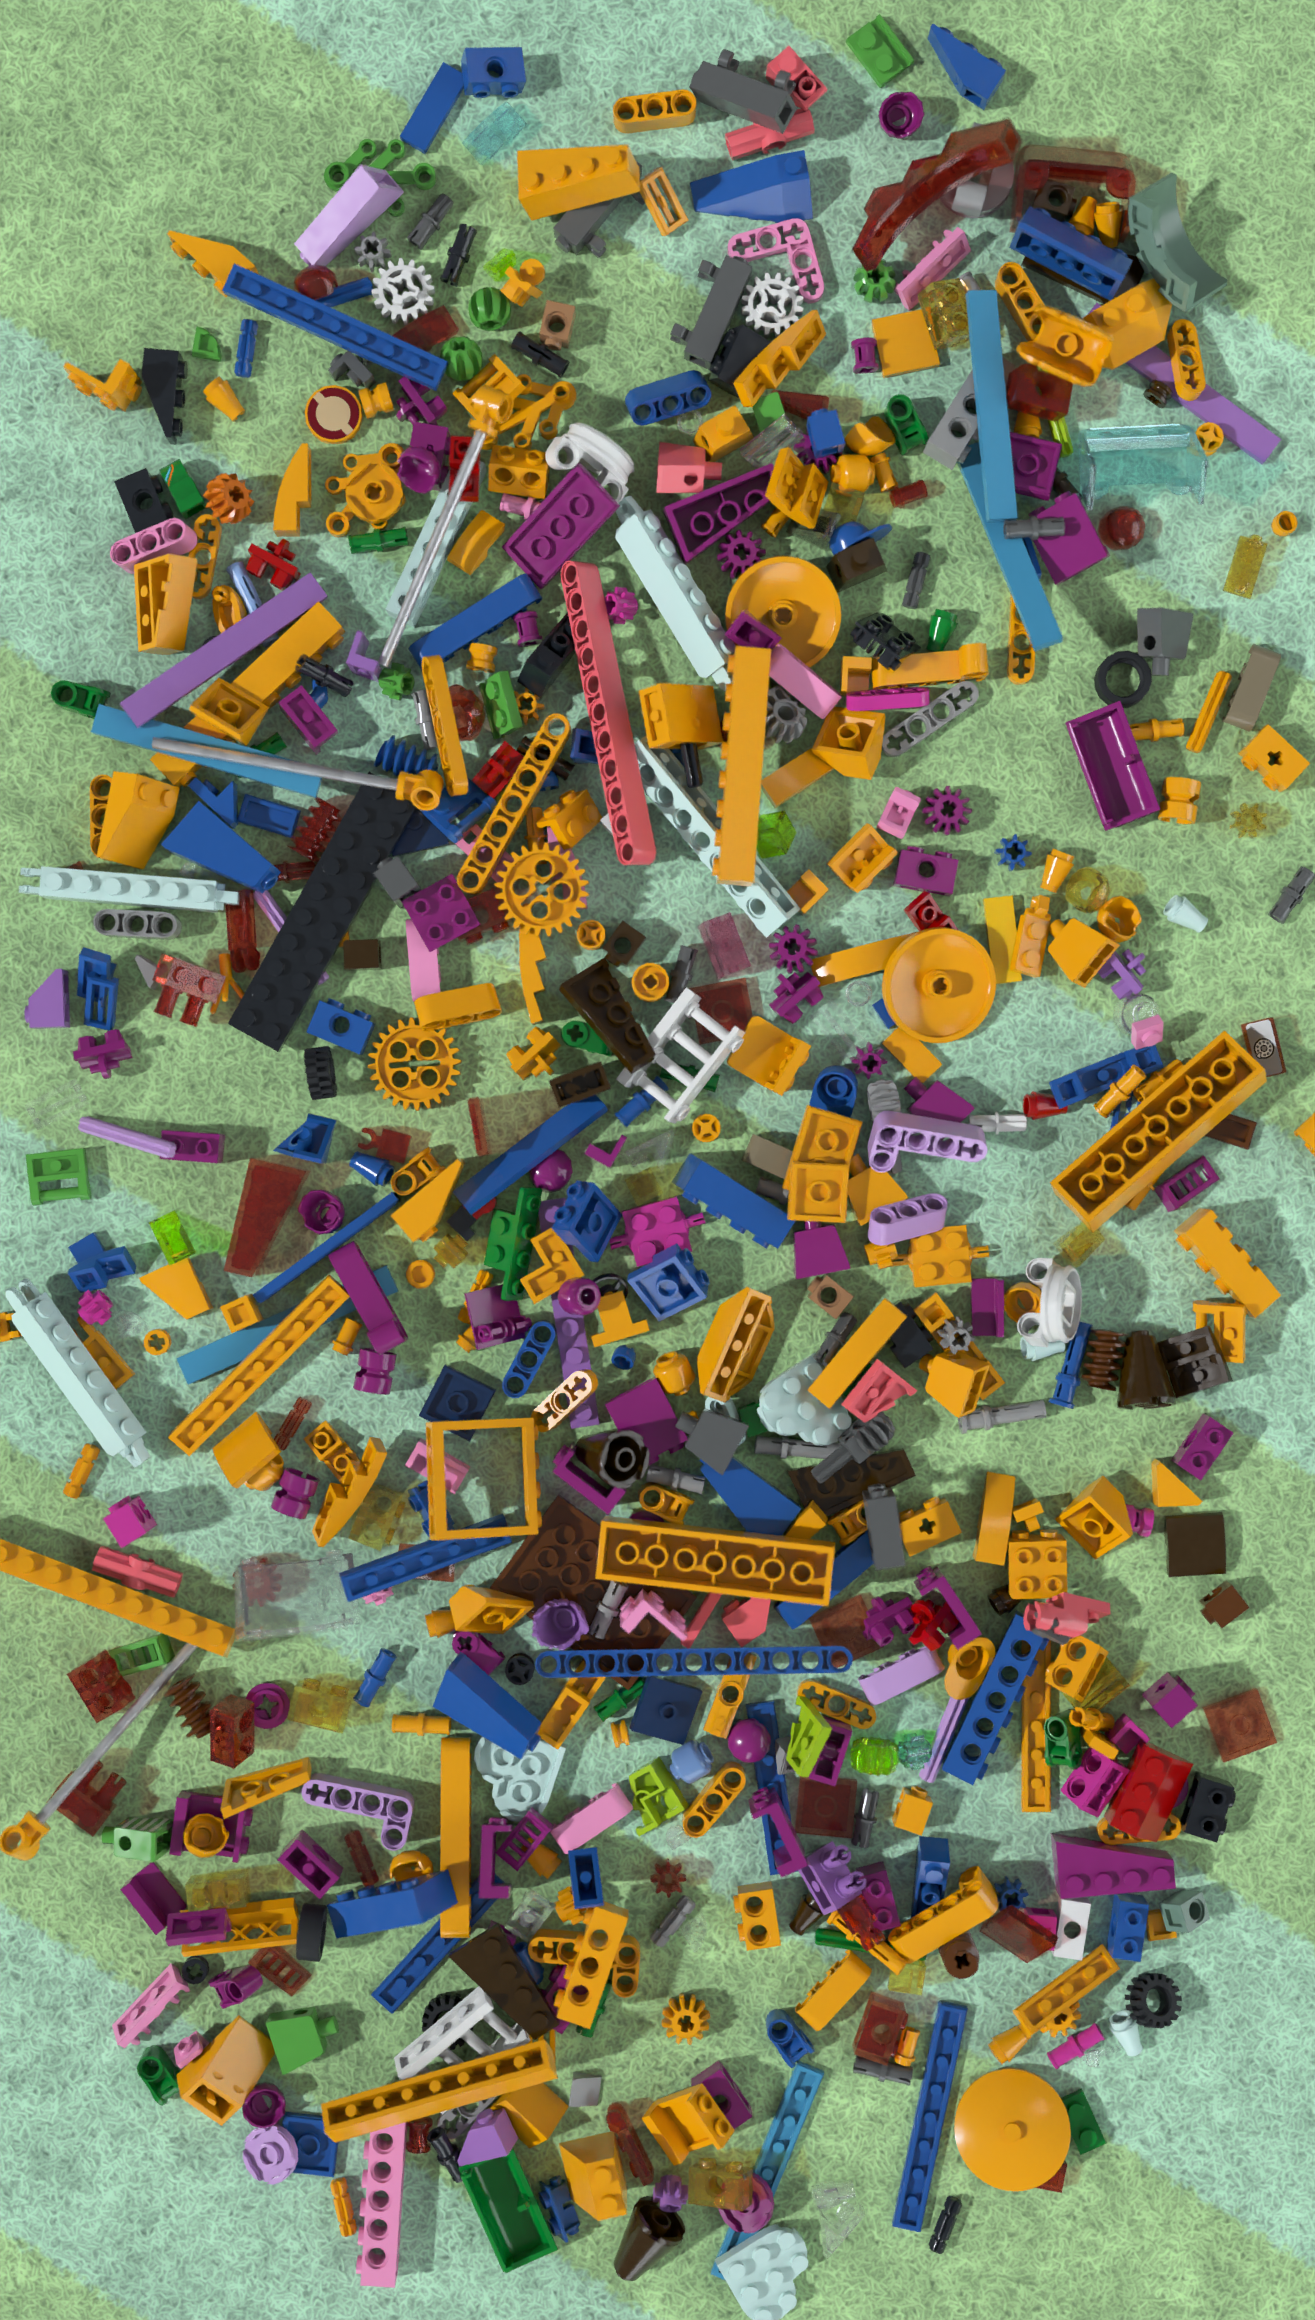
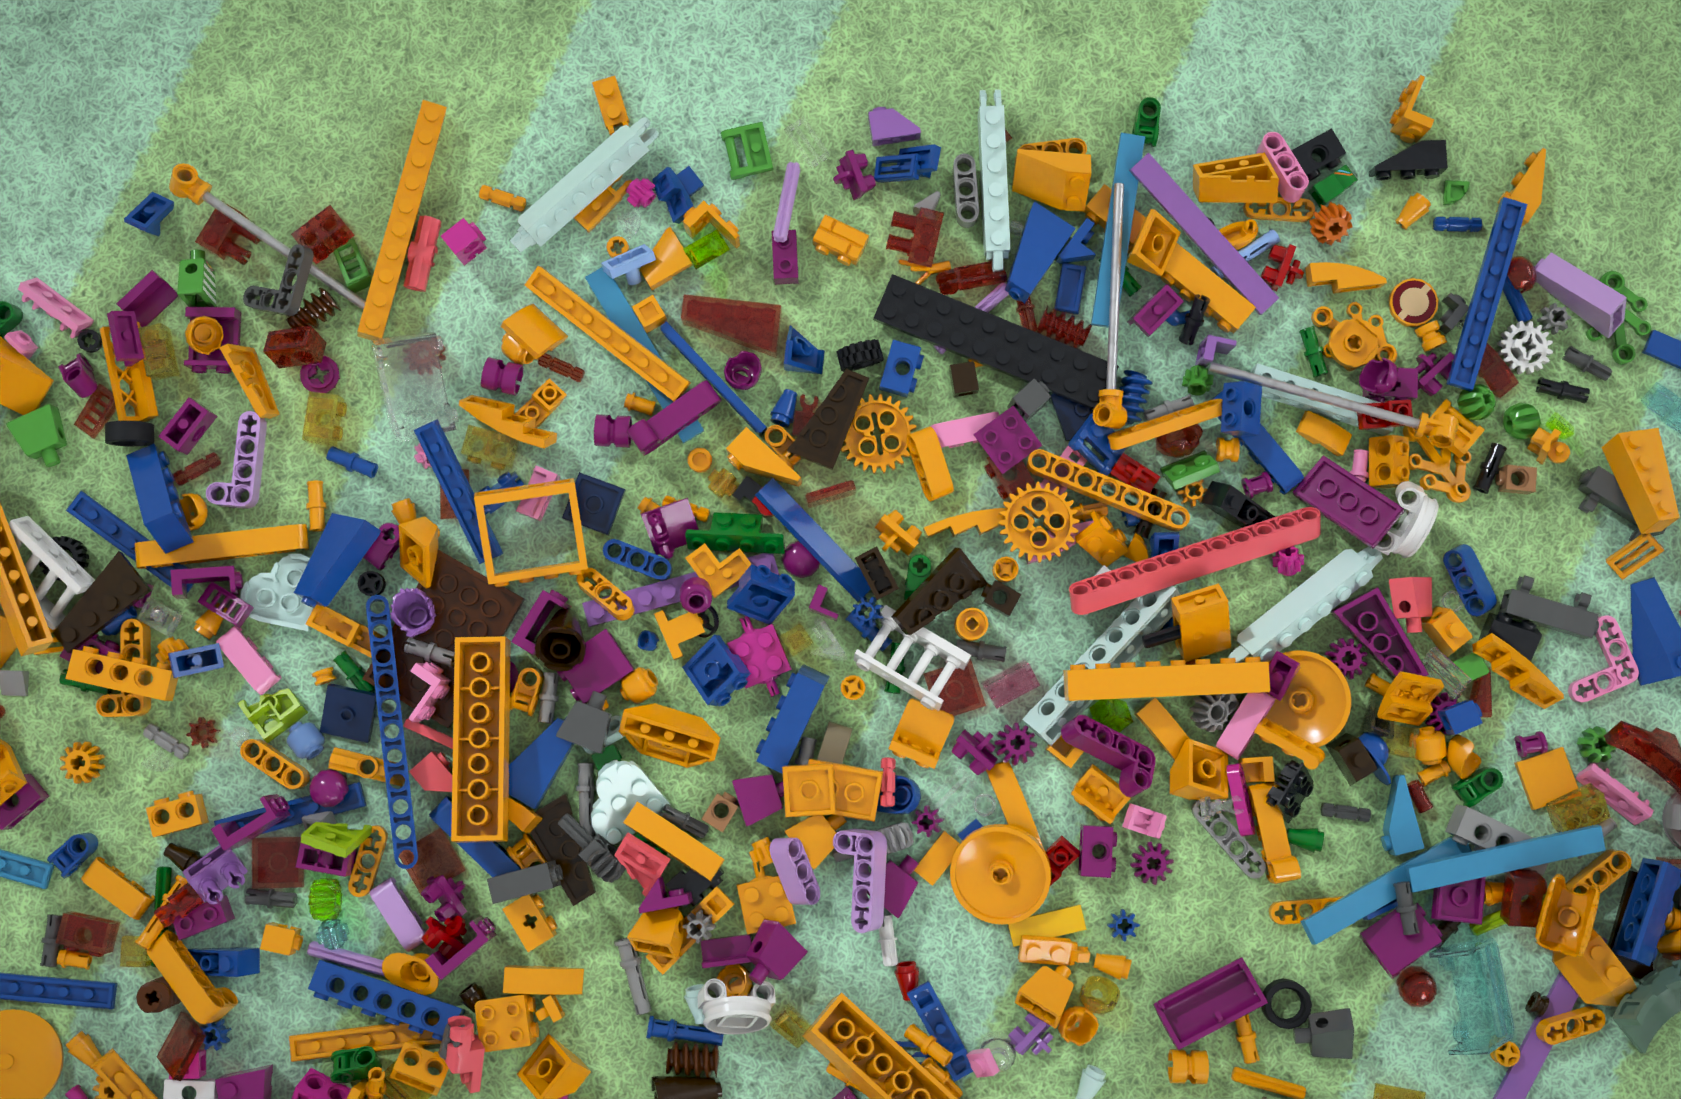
camera: 80 degrees right, 5 degrees down
(52, 1886) = (150, 213): none -> blue slope
(133, 1242) = (700, 216): none -> light orange bracket
(170, 1739) = (284, 301): none -> dark grey beam
(178, 1330) = (629, 263): none -> light blue tile
(180, 1079) = (840, 241): none -> light orange brick
(400, 1119) = (828, 427): none -> dark brown wing
(437, 635) = (1241, 409): none -> blue brick
(586, 778) = (1137, 549): none -> light orange tile
(618, 1108) = (873, 615): none -> blue gear
(767, 292) = (1573, 660): white gear -> none
(819, 1100) = (888, 782): none -> coral axle
(826, 816) = (1114, 748): none -> magenta beam
(831, 633) = (1290, 743): none -> light orange plate
(891, 738) = (1218, 806): none -> clear piece
(922, 1378) = (658, 900): none -> magenta slope
(936, 519) = (1400, 822): none -> dark azure slope
(996, 1254) = (773, 952): none -> magenta torso

